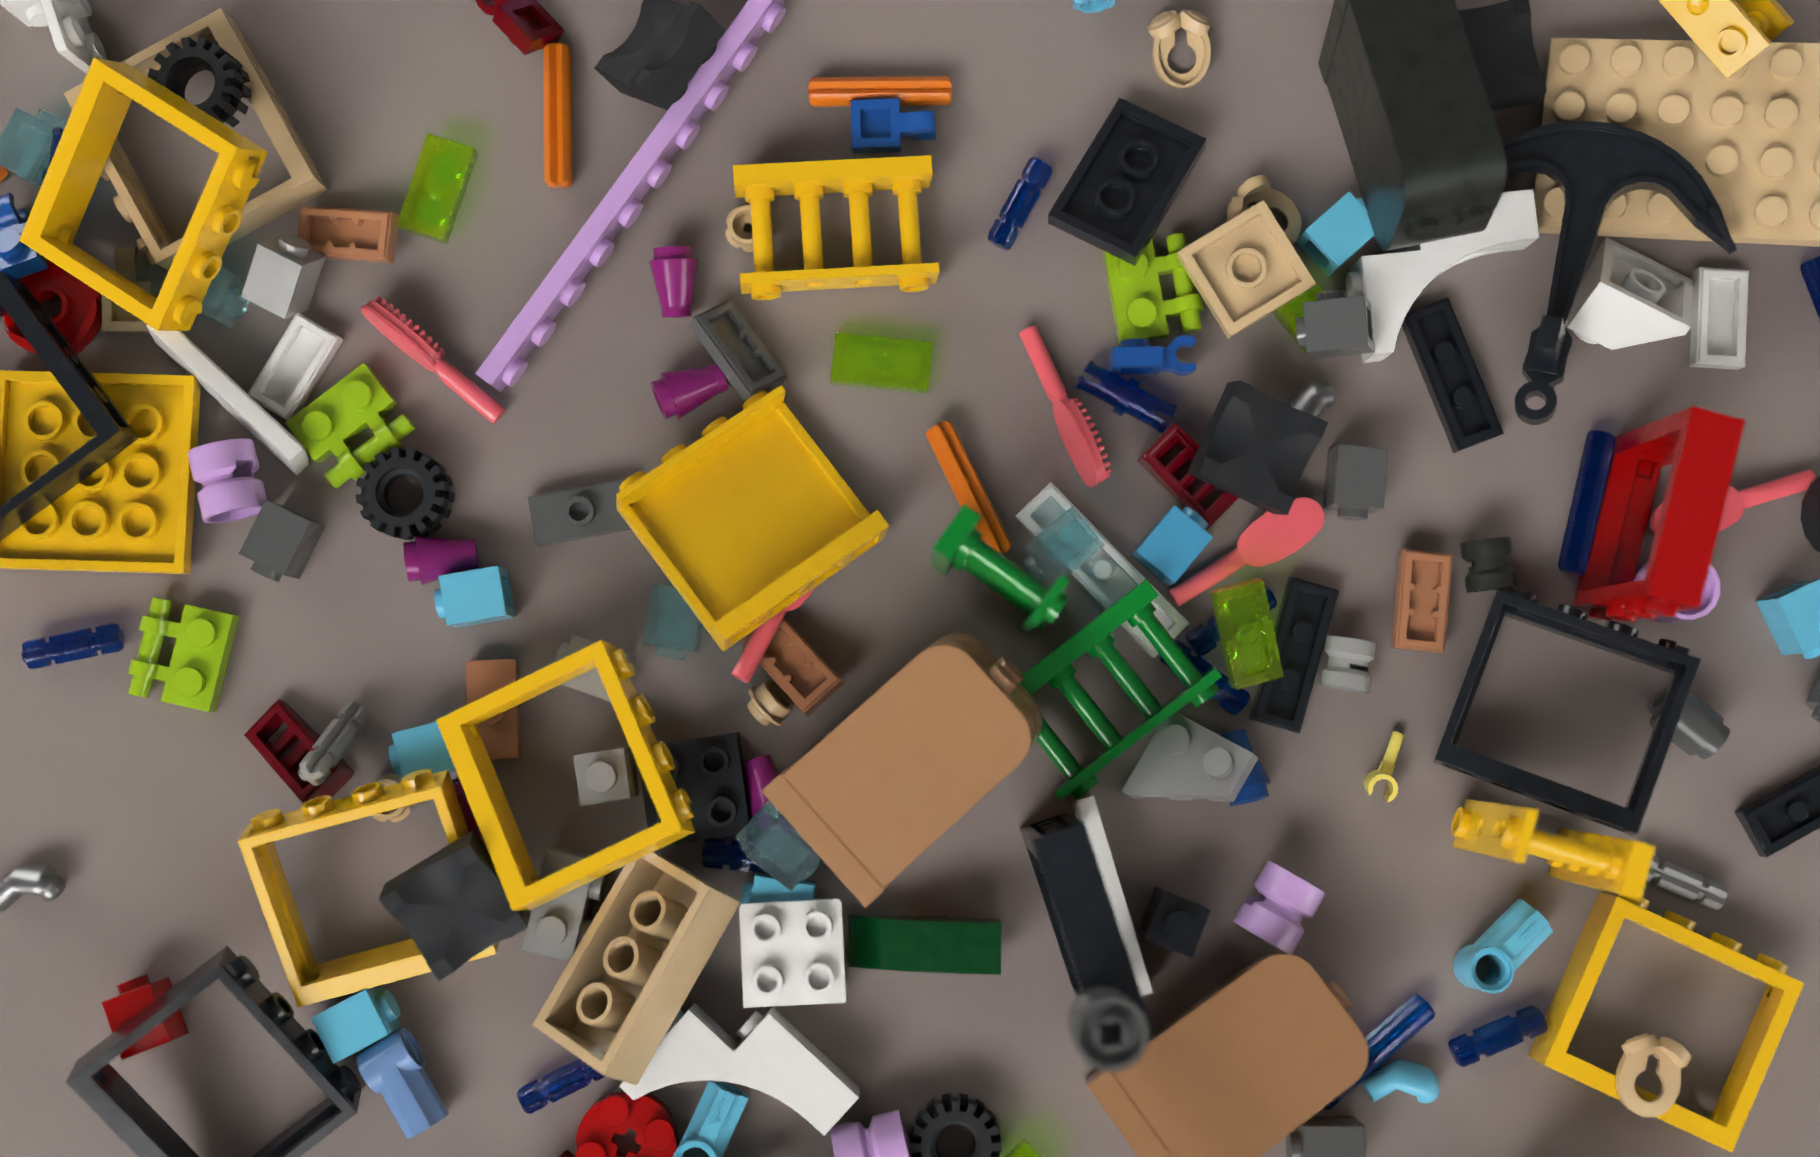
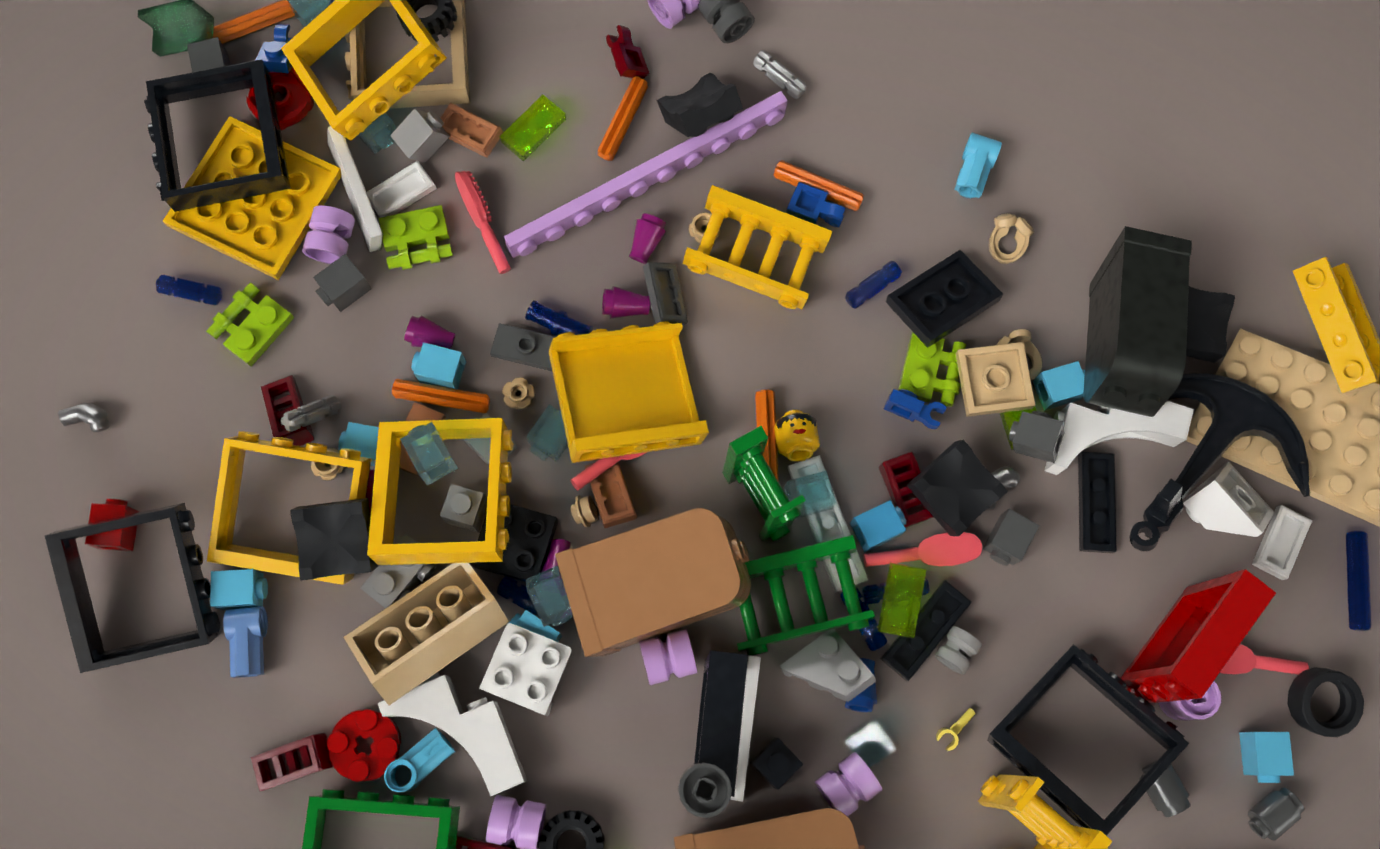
camera: 20 degrees right, 10 degrees down
(134, 267) = (314, 118): dark tan plate -> none
(380, 477) = (423, 271): black tyre -> none
(497, 635) = (440, 396): none -> orange axle
(526, 736) = (429, 453): none -> clear light blue brick
(556, 1085) = (342, 688): clear blue axle -> none
(608, 457) = (555, 321): none -> clear blue pin
(614, 588) = (522, 401): none -> tan plate
(881, 363) = (747, 340): clear neon green plate -> none
(925, 944) = (611, 704): dark green slope -> none
(971, 850) = (668, 657): none -> lavender wheel
(1009, 469) = (797, 435): none -> yellow head
(1069, 419) = (848, 423): coral piece -> none
(1126, 396) = (888, 424): clear blue pin -> none
(1284, 838) = (871, 743): none -> clear light blue slope
(1421, 601) = (1021, 632): nougat plate -> none
(1488, 564) = (1074, 627): pearl dark grey wheel -> none
(1586, 502) = (1152, 618): clear blue axle -> none

